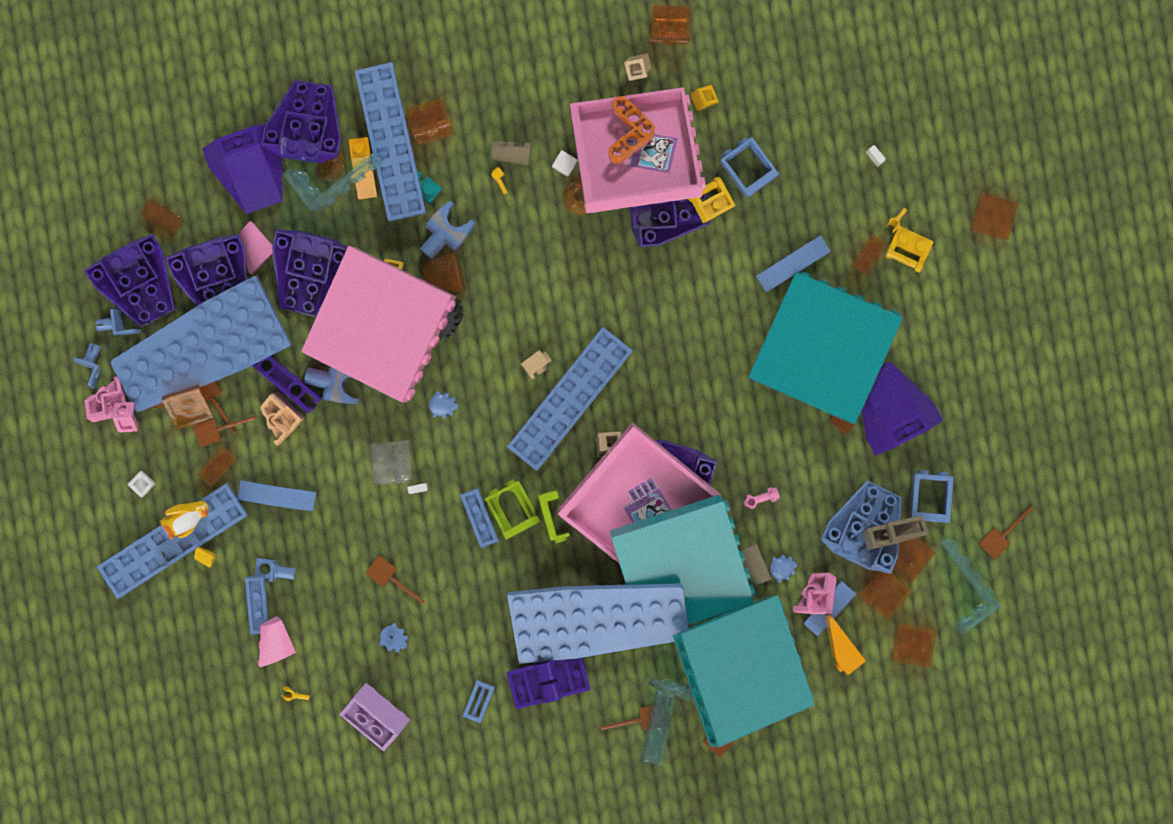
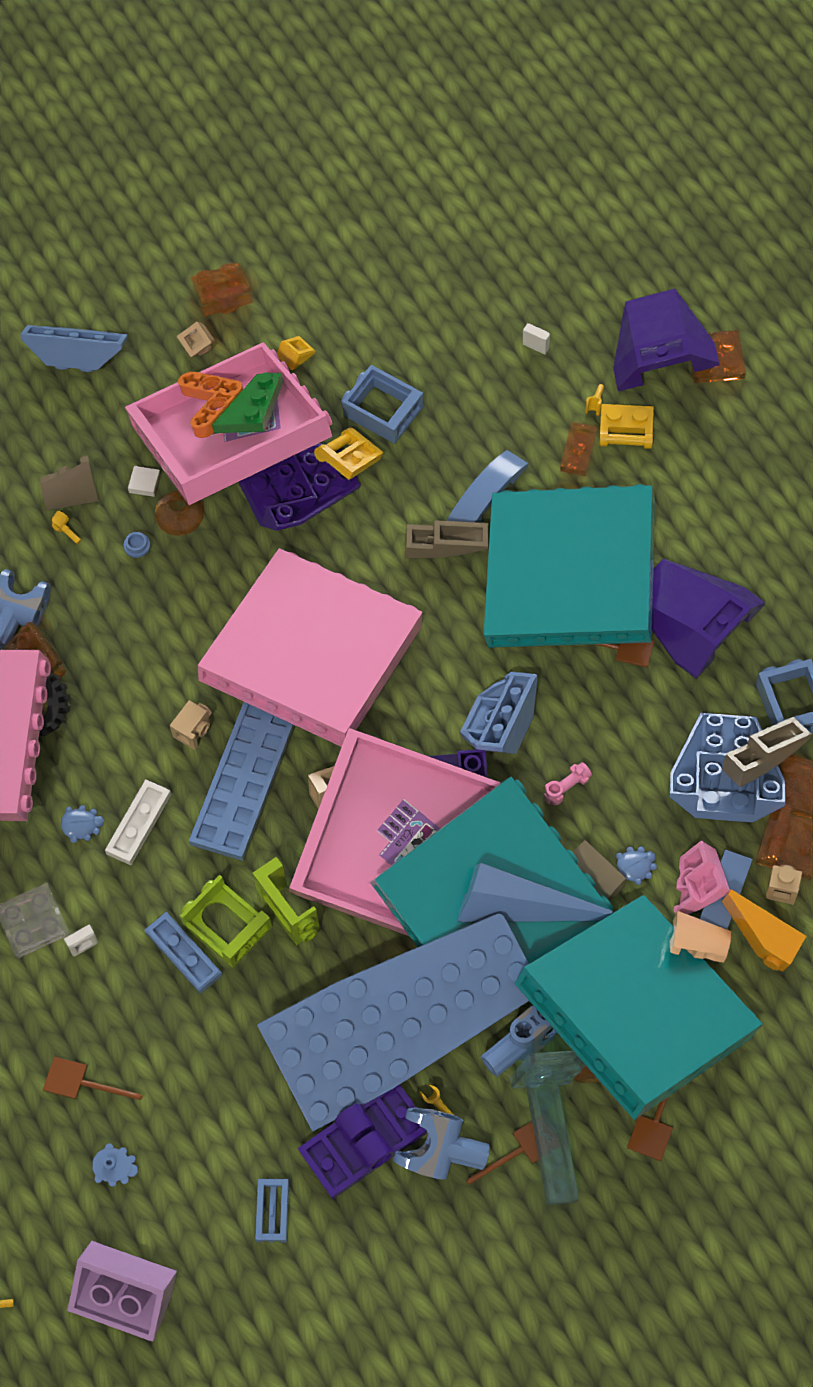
camera: 15 degrees left, 25 degrees down
(479, 419) = (138, 822): none -> white plate
(543, 212) = (136, 545): none -> medium blue plate
(551, 35) = (72, 347): none -> medium blue wedge
(592, 704) = (441, 1146): none -> medium blue connector
(599, 671) = (435, 1100): none -> yellow hand
(633, 340) = (310, 646): none -> bright pink panel
(655, 151) = (252, 407): none -> green wing
(656, 662) = (525, 1037): none -> medium blue connector
(693, 577) = (521, 900): none -> medium blue wedge
(736, 439) = (502, 714): none -> medium blue wedge
(751, 291) = (445, 539): none -> dark tan slope
(799, 637) = (699, 938): none -> light nougat slope
(868, 618) = (784, 879): none -> tan brick
(960, 191) = (658, 334): none -> dark purple wedge

